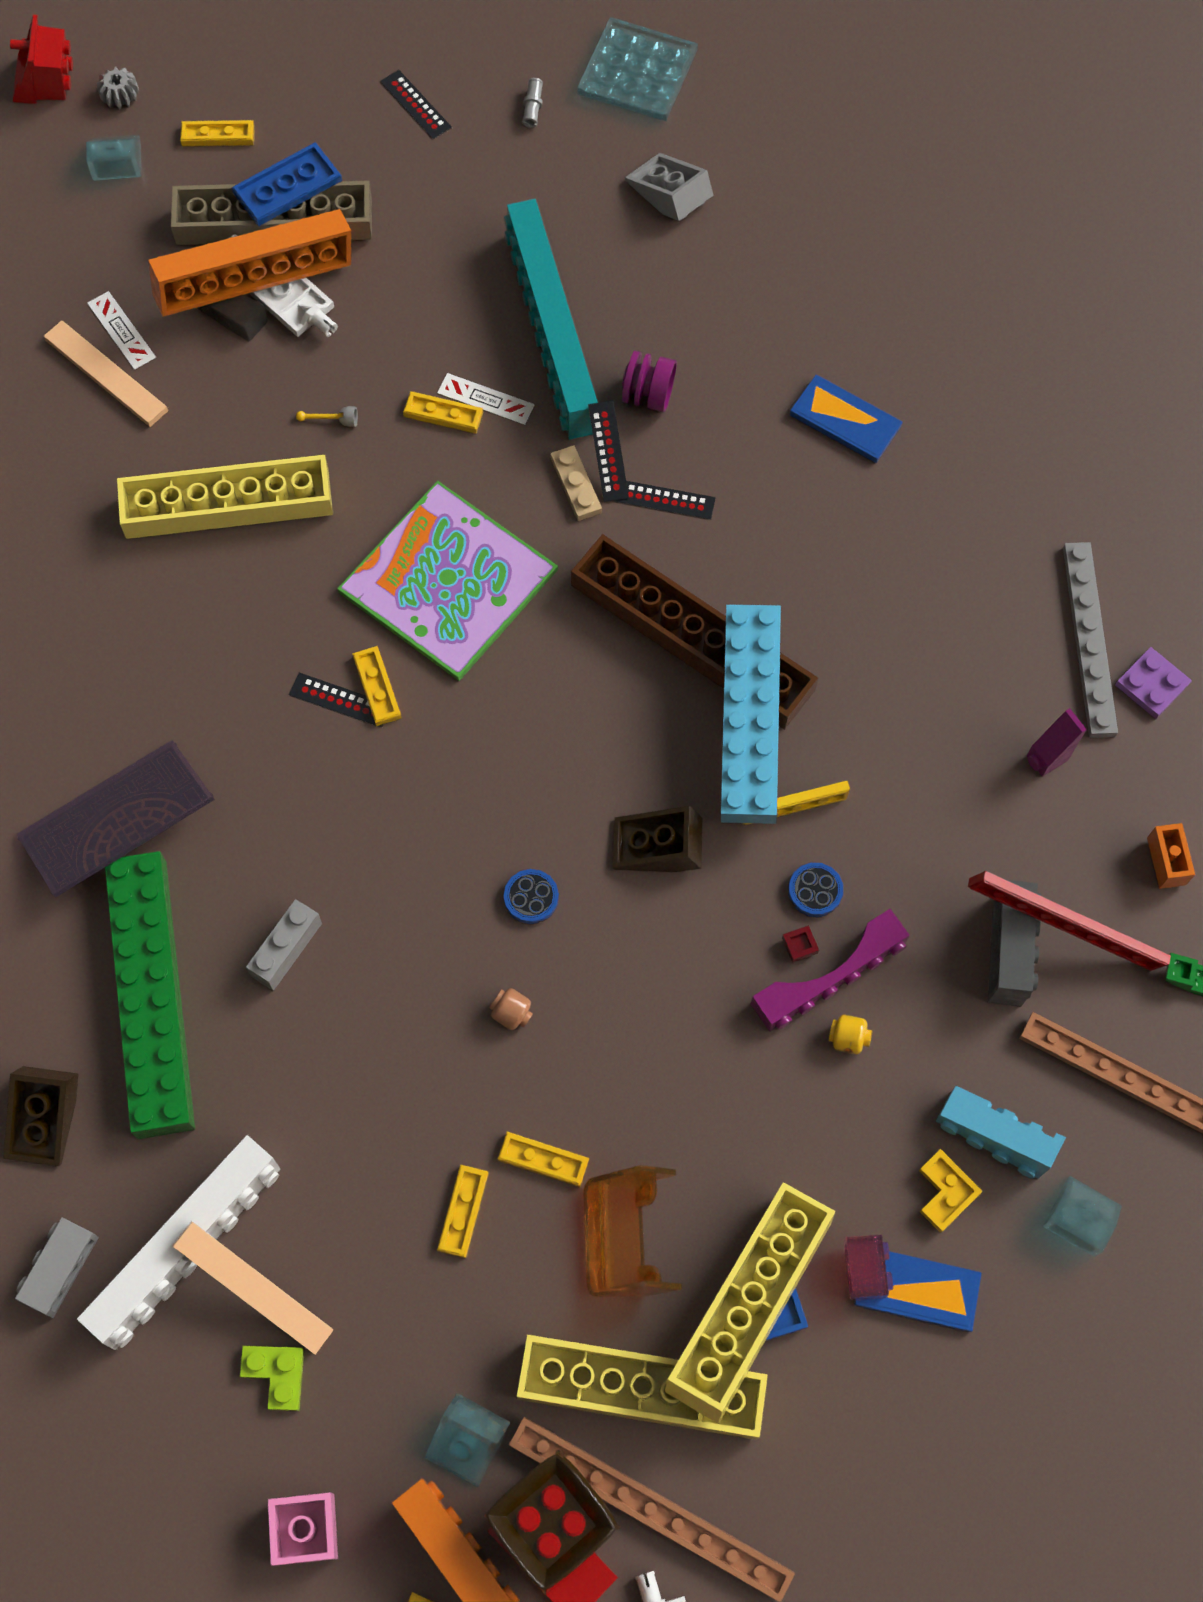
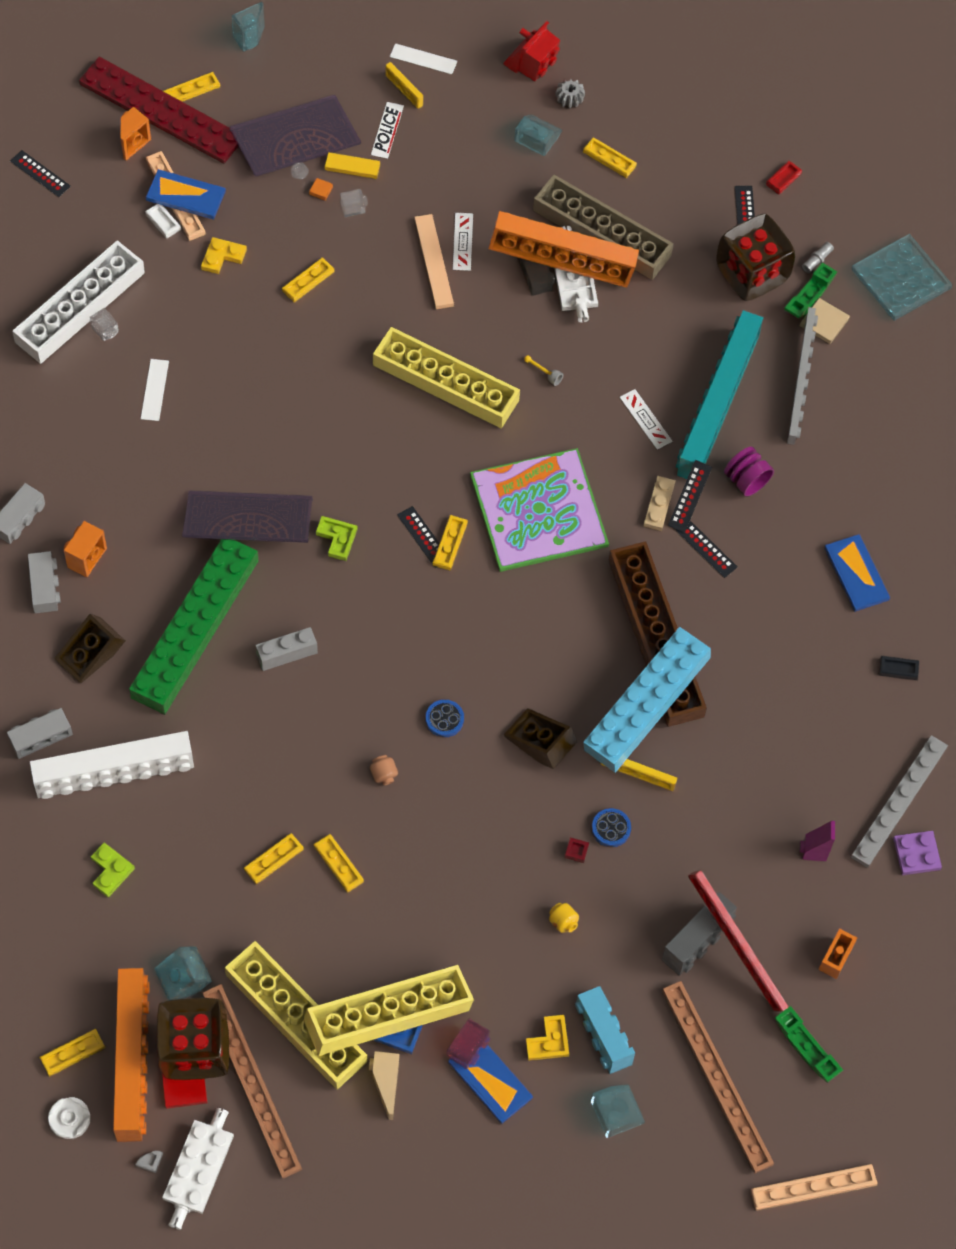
camera: 35 degrees right, 5 degrees down
(241, 761) = (341, 534): none -> lime plate
(252, 1287) = (131, 813): light nougat tile -> none
(286, 184) = (621, 215): blue tile -> none
(302, 1529) = (64, 954): bright pink brick -> none
(427, 39) = (784, 177): none -> red tile
(443, 412) = (613, 410): yellow tile -> none
(471, 138) = (755, 257): none -> dark brown piece
(555, 142) = (812, 291): none -> green slope
(594, 167) = (829, 321): none -> tan tile
(616, 1233) = (348, 928): clear orange windscreen -> none
(623, 246) = (802, 383): none -> light grey plate
(671, 185) = (862, 362): light grey slope -> none
(784, 1000) = (541, 874): magenta arch -> none
(801, 1380) = (385, 1076): none -> tan slope
(971, 493) = (899, 668): none -> black tile

